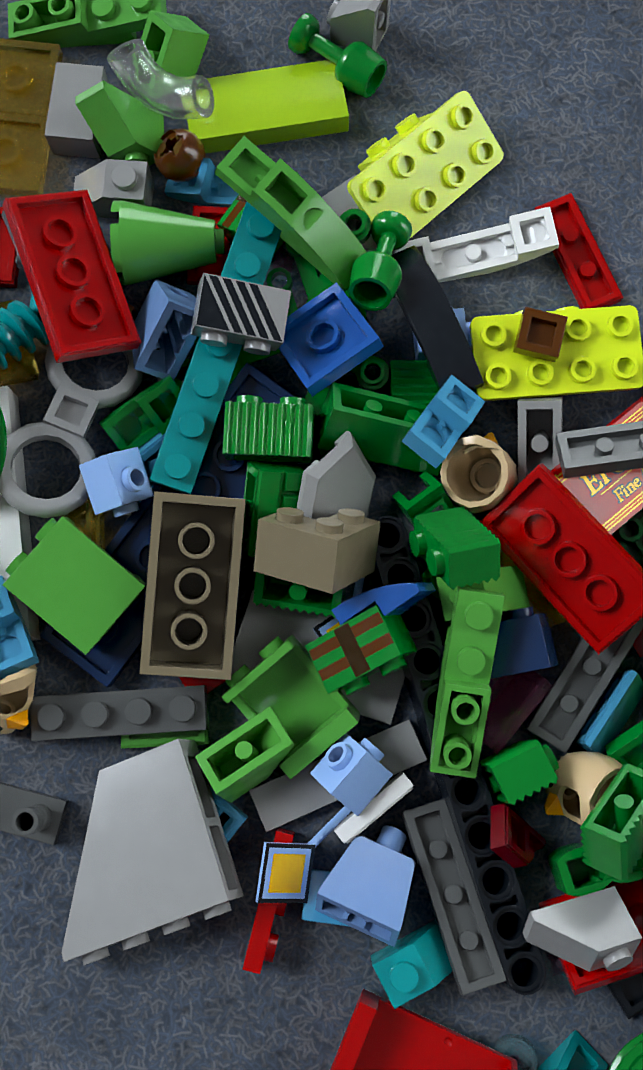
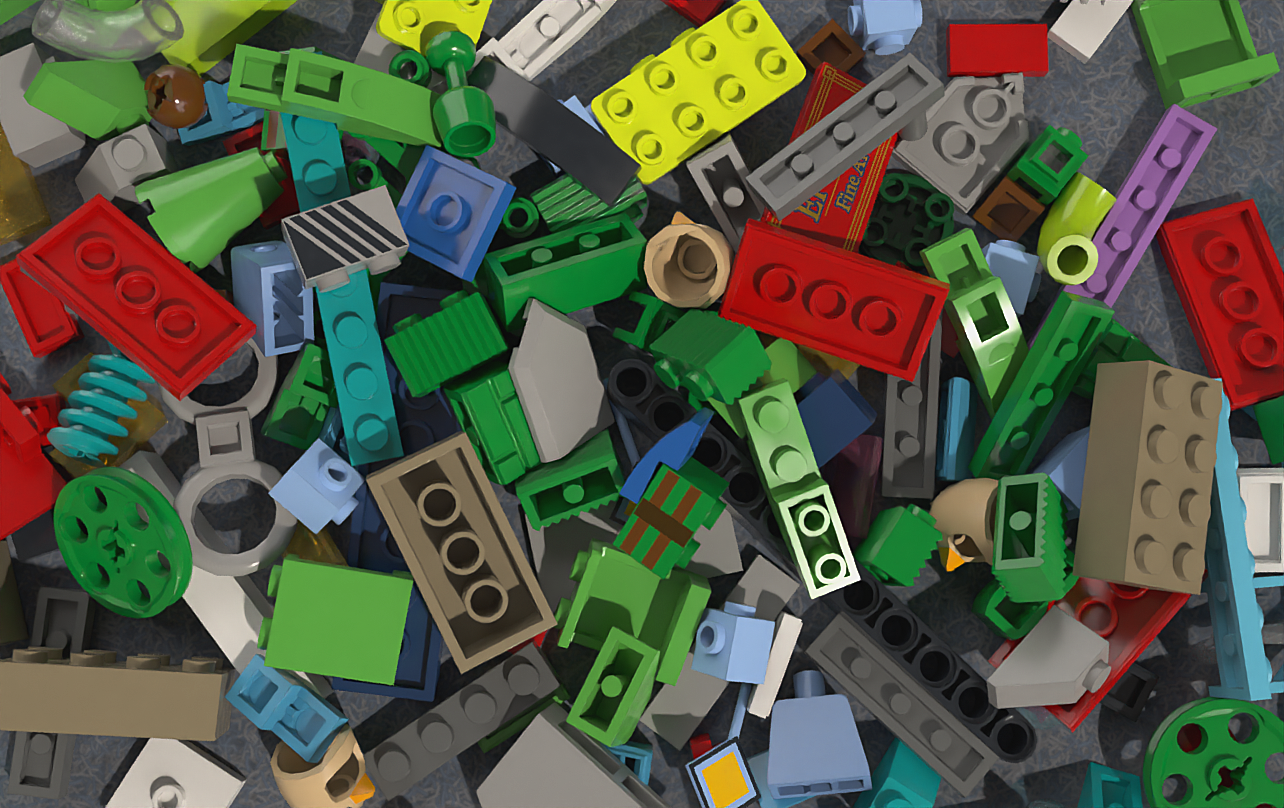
camera: 30 degrees left, 5 degrees up
(319, 551) = (571, 445): dark tan brick -> none
(443, 421) = (623, 232): dark azure slope -> none
(513, 837) = (928, 613): dark red tile -> none
(540, 334) = (671, 81): reddish brown tile -> none

